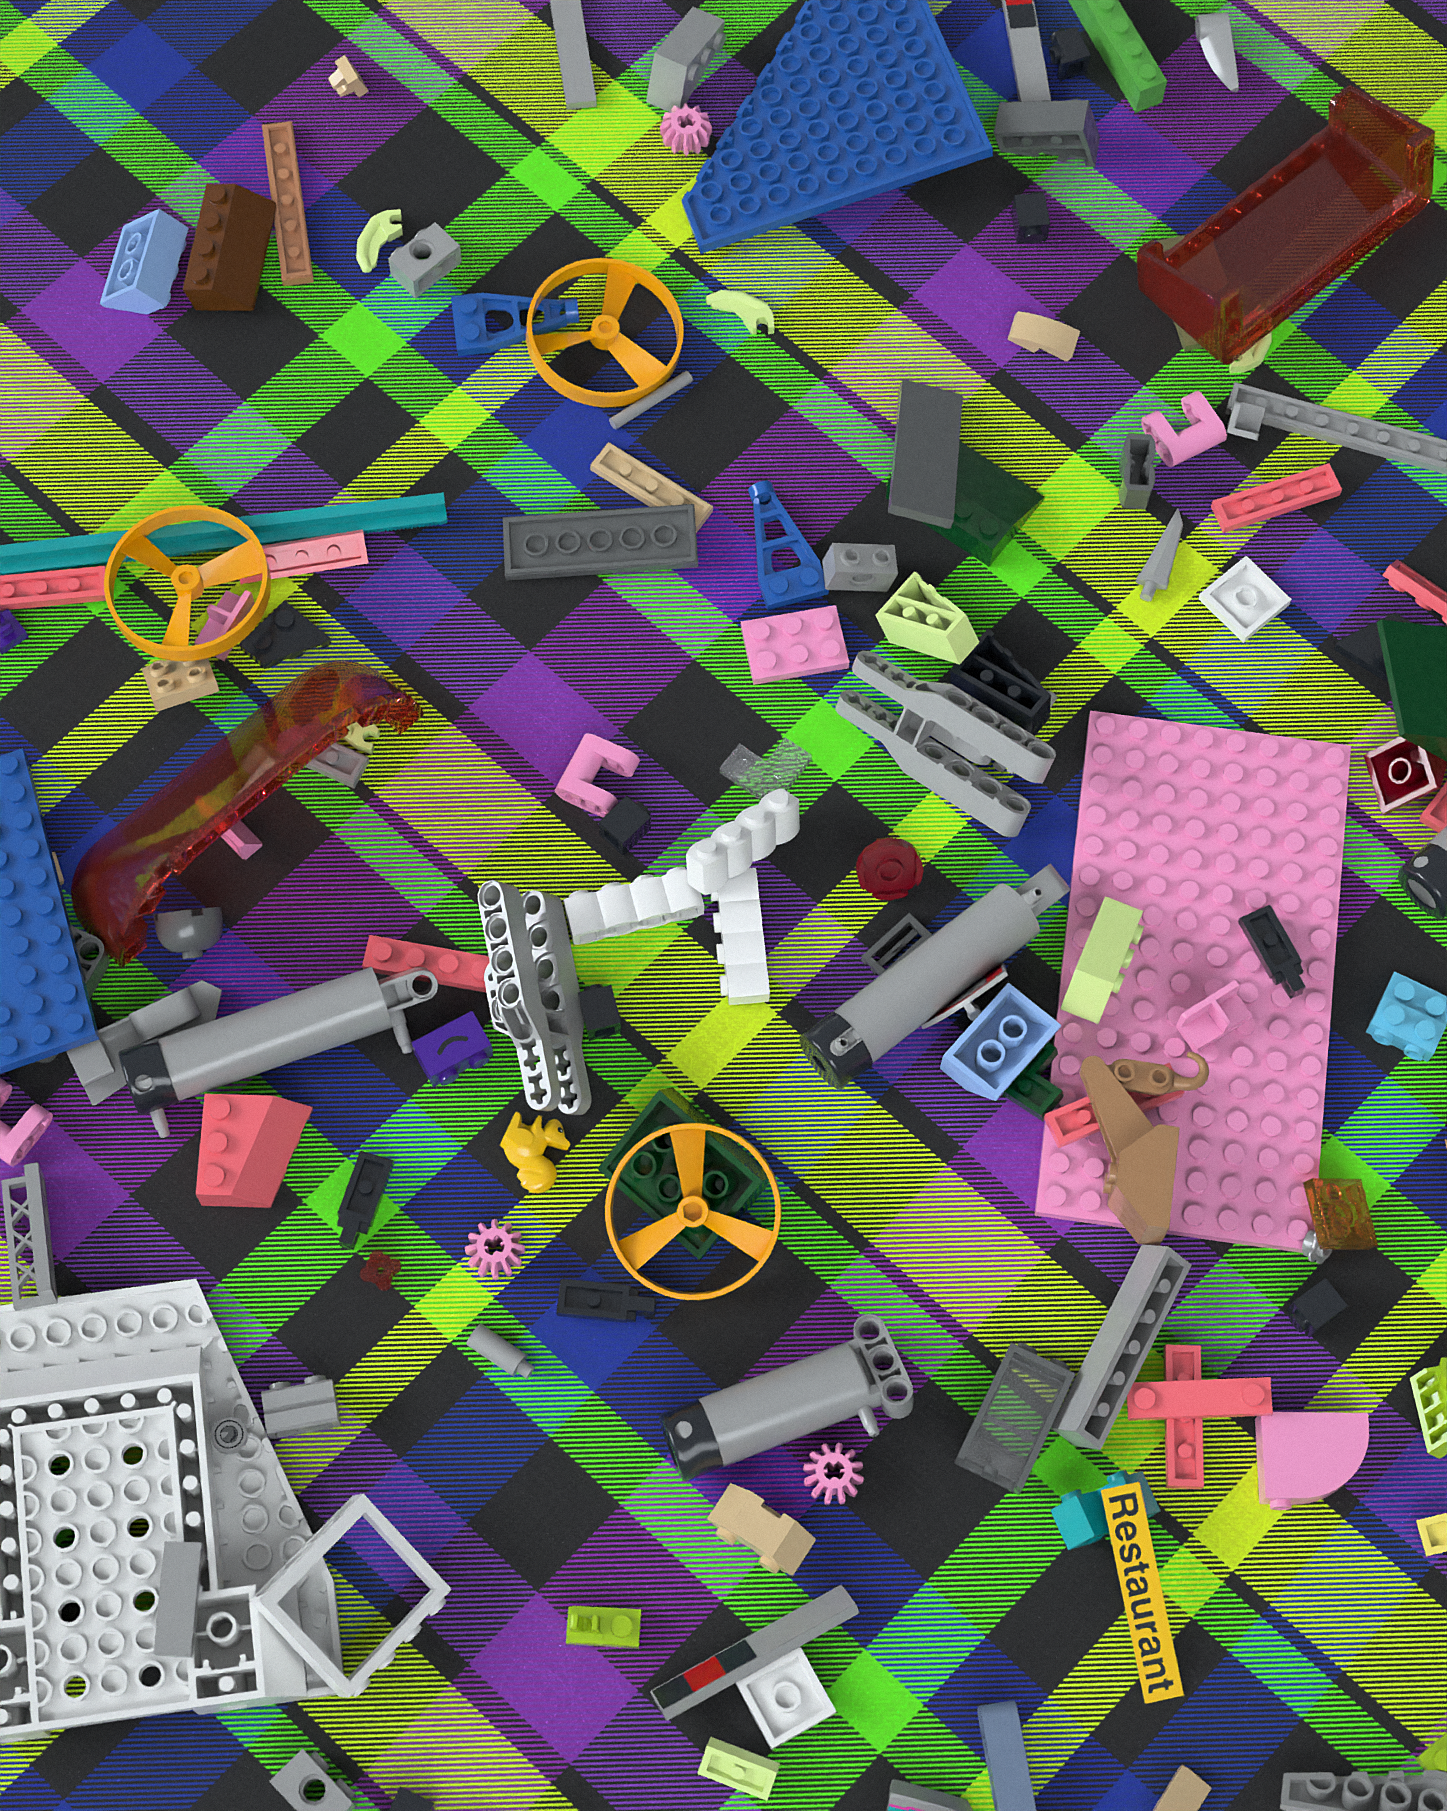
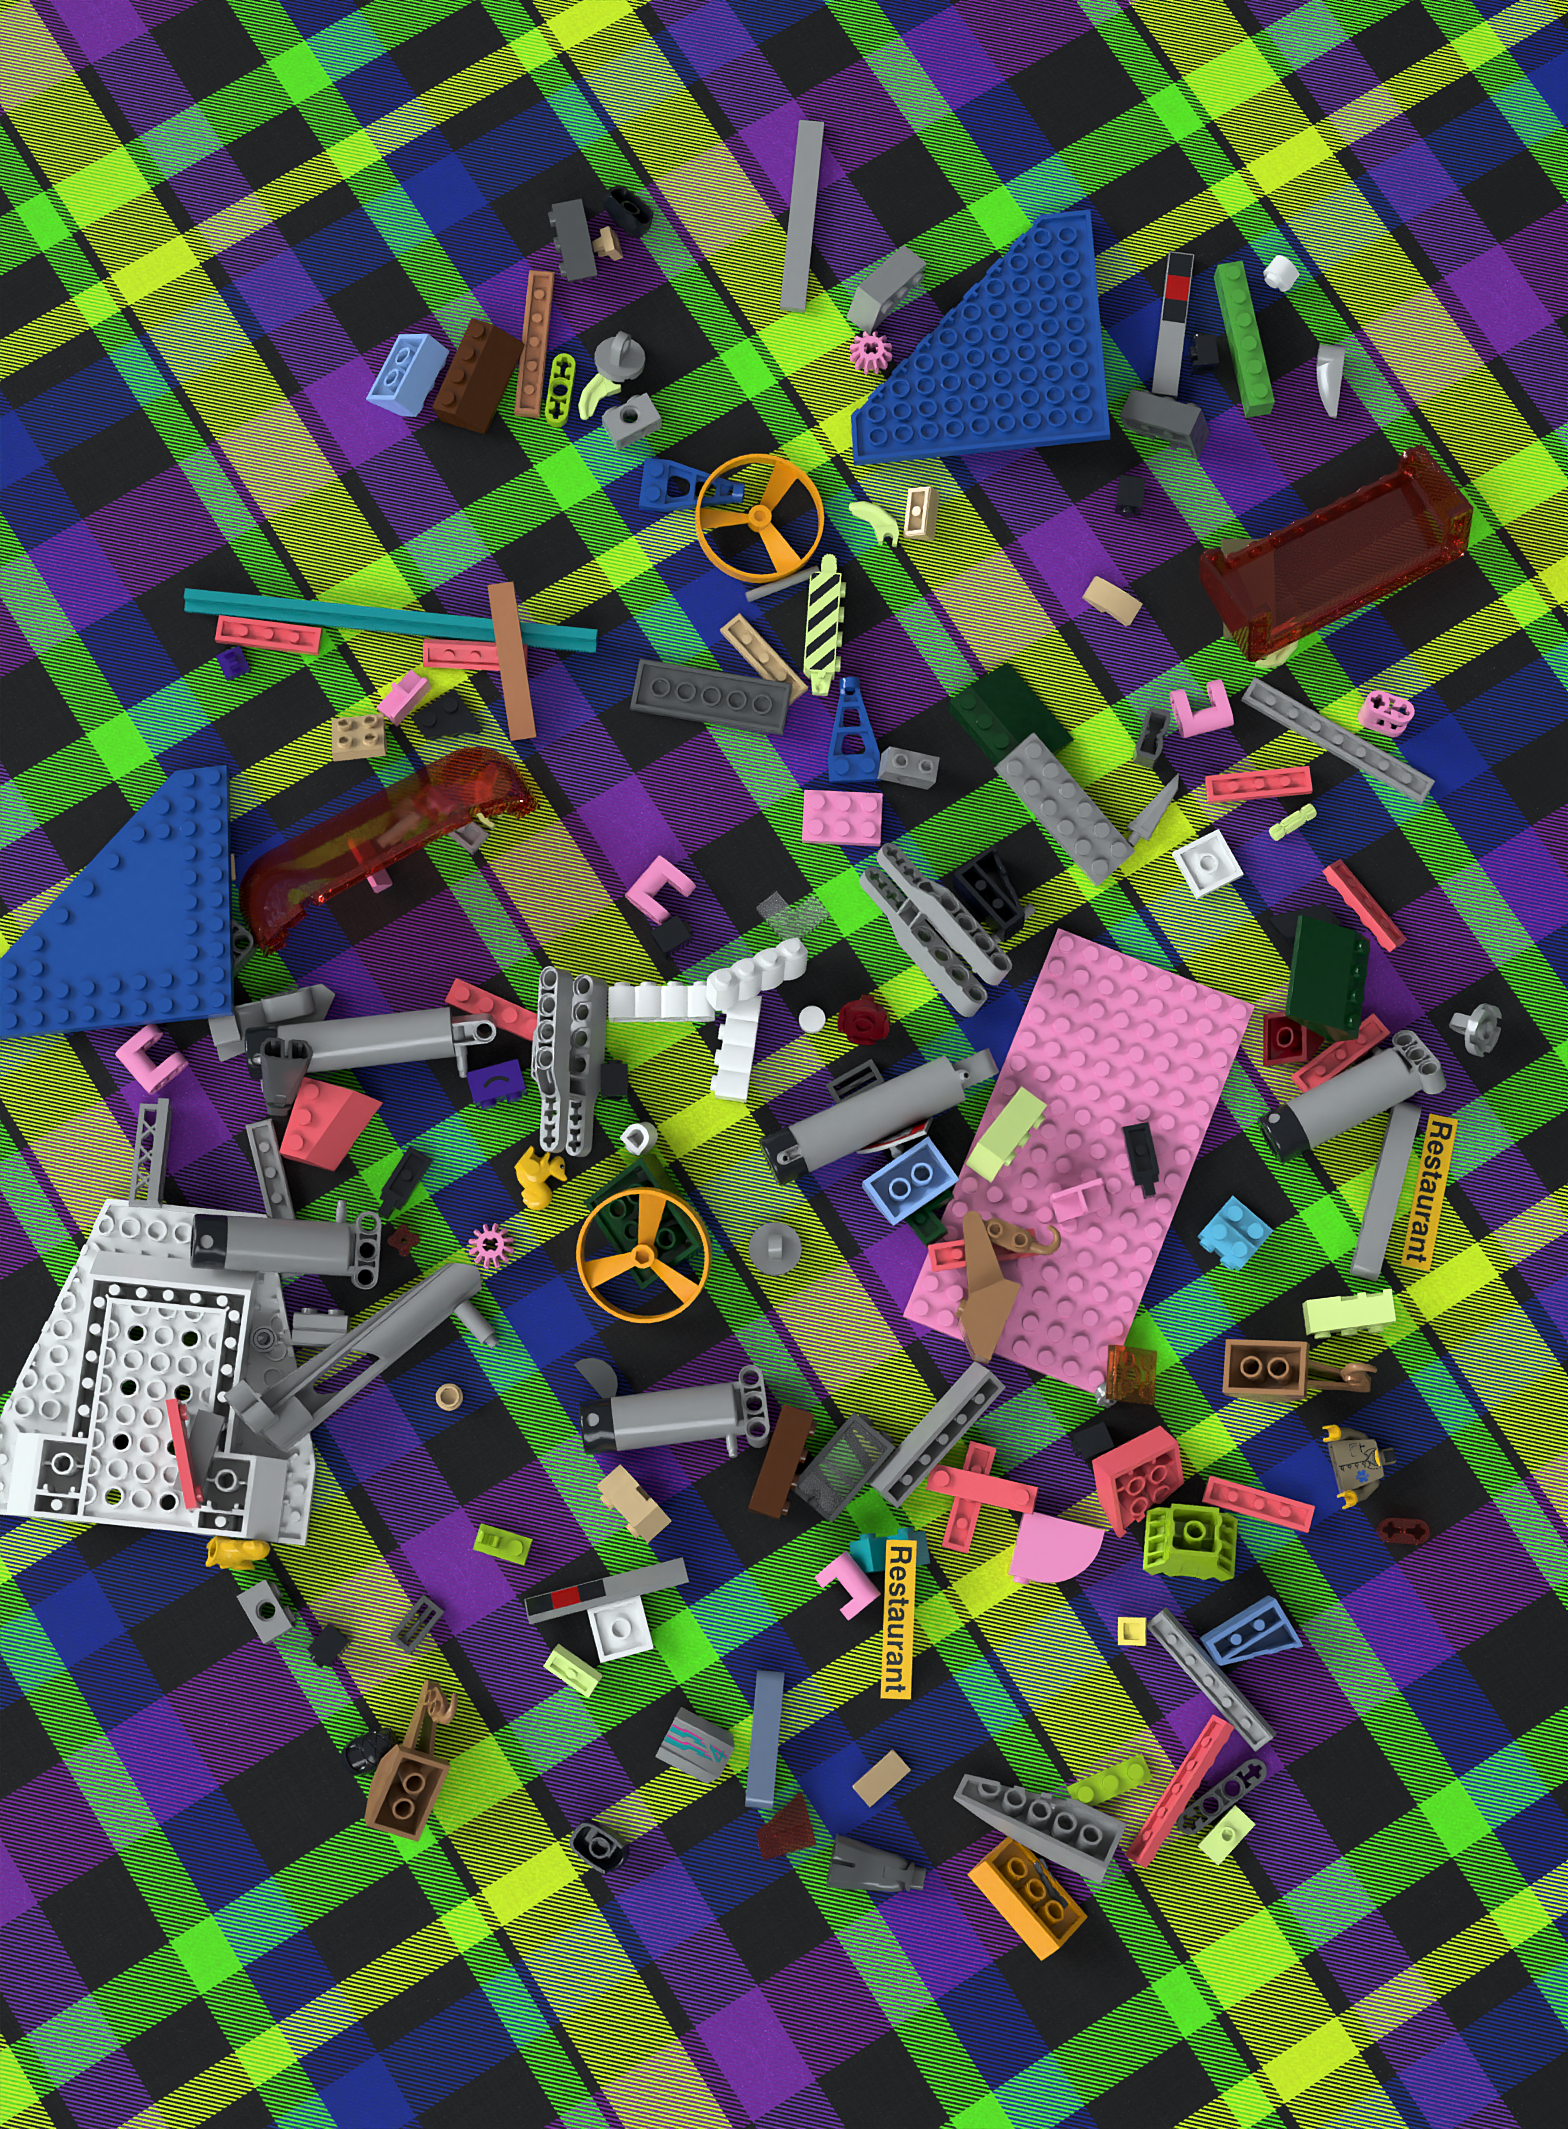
camera: 15 degrees right, 10 degrees up
(139, 1553) = (192, 1492): none -> coral plate
(179, 1092) = (282, 1073): none -> dark grey piece
(189, 930) = (320, 942): dark grey cylinder -> none
(190, 581) = (381, 661): light orange piece -> none
(205, 1258) = (271, 1173): none -> light grey tile
(233, 1306) = (286, 1245): none -> light grey piece
(256, 1723) = (235, 1553): none -> yellow animal
(285, 1507) = (294, 1408): none -> light grey panel
(303, 1561) = (299, 1445): white window -> none
(306, 80) = (573, 241): none -> dark grey wedge
(337, 256) = (569, 374): none -> lime beam
(349, 550) = (512, 661): none -> nougat tile
(362, 39) = (628, 211): none -> black piece
(393, 193) = (619, 358): none -> light grey tile
(487, 1453) = (449, 1397): none -> tan plate
(530, 1732) = (402, 1643): none -> dark grey tile
(602, 1301) = (561, 1304): black hinge -> none
(649, 1072) = (640, 1138): none -> white plate
(672, 1379) = (599, 1375): none -> dark grey tile
(712, 434) = (822, 626): none -> yellowish green hinge
(792, 290) = (921, 513): none -> tan slope
(823, 884) = (812, 1019): none -> white tile
(833, 1461) = (696, 1485): bright pink gear -> none
(853, 1169) = (775, 1248): none -> light grey tile
(925, 454) = (984, 686): dark grey tile -> none
(927, 622) = (946, 828): yellowish green wedge -> none
(938, 1427) = (781, 1462): none -> reddish brown slope
(1059, 571) = (1064, 809): none -> light grey plate
(1070, 1554) = (853, 1580): none -> bright pink connector
(1245, 419) = (1252, 714): light grey panel -> none
(1328, 531) = (1292, 822): none -> yellowish green axle
(1386, 1338) = (1137, 1477): none -> coral wedge
(1389, 380) = (1376, 709): none -> bright pink connector

